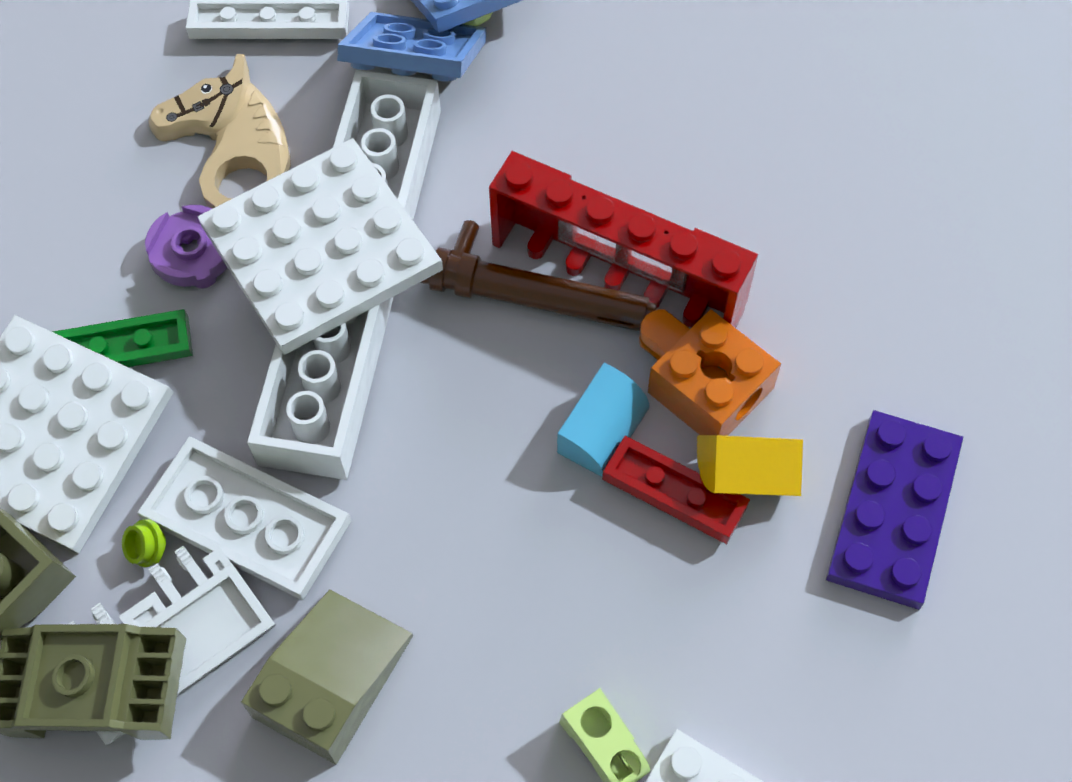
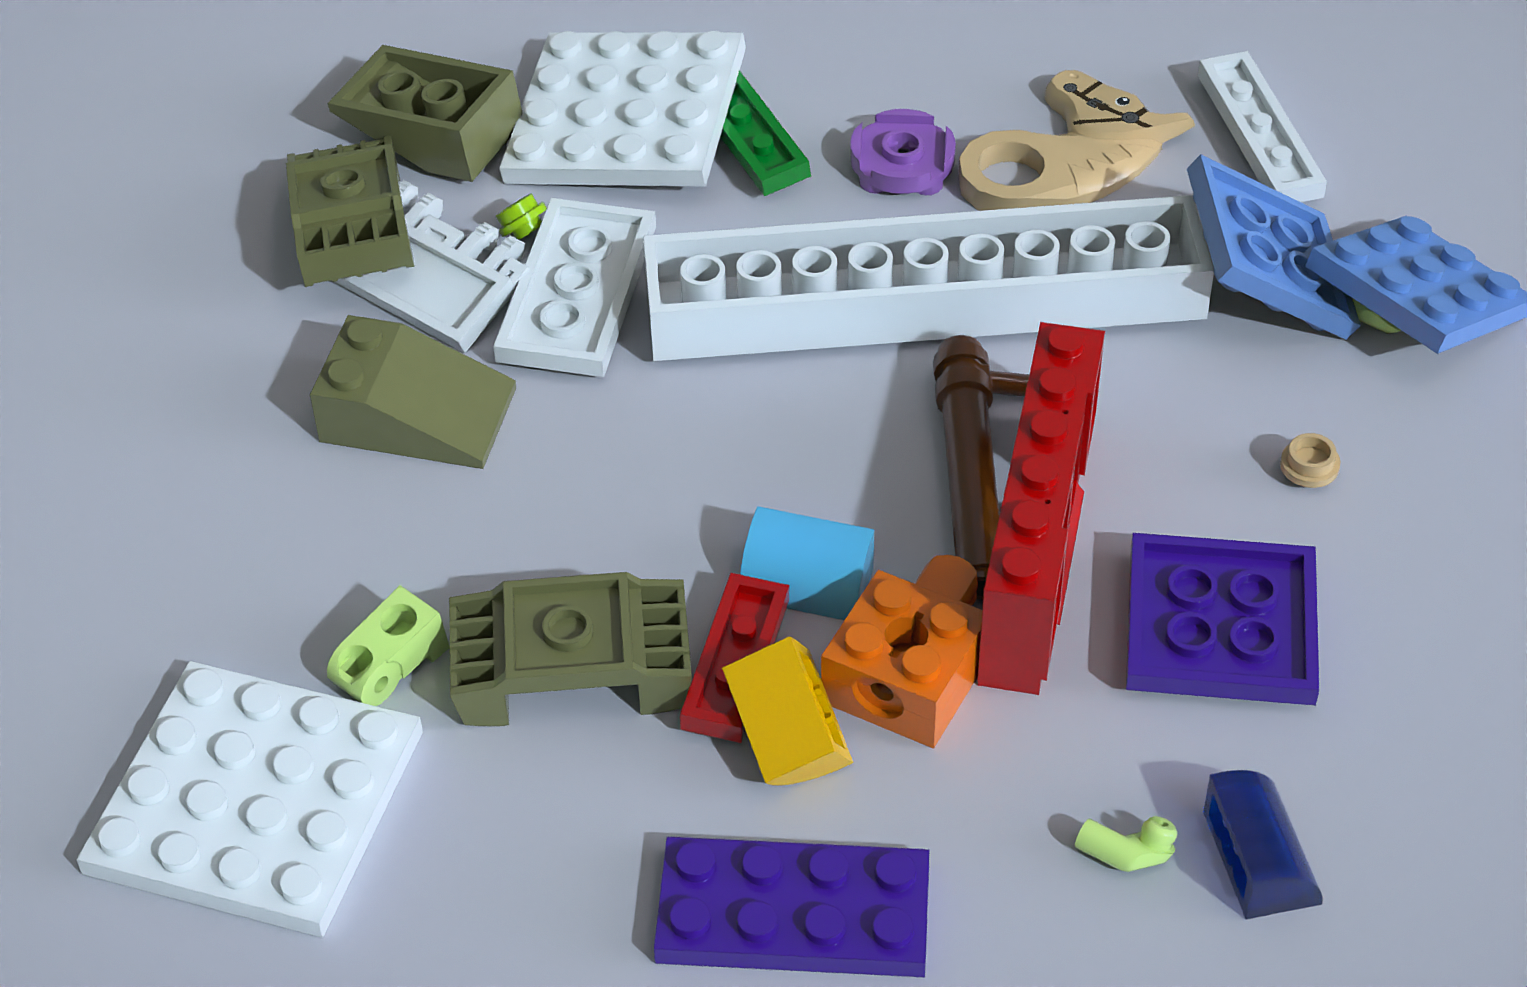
camera: 75 degrees right, 15 degrees down
(319, 245) = (919, 224): white plate -> none
(596, 95) = (1310, 461): none -> tan plate
(645, 601) = (568, 638): none -> olive plate
(721, 183) = (1223, 619): none -> dark purple plate
(891, 295) = (1132, 851): none -> yellowish green arm
(906, 226) = (1258, 844): none -> clear blue brick

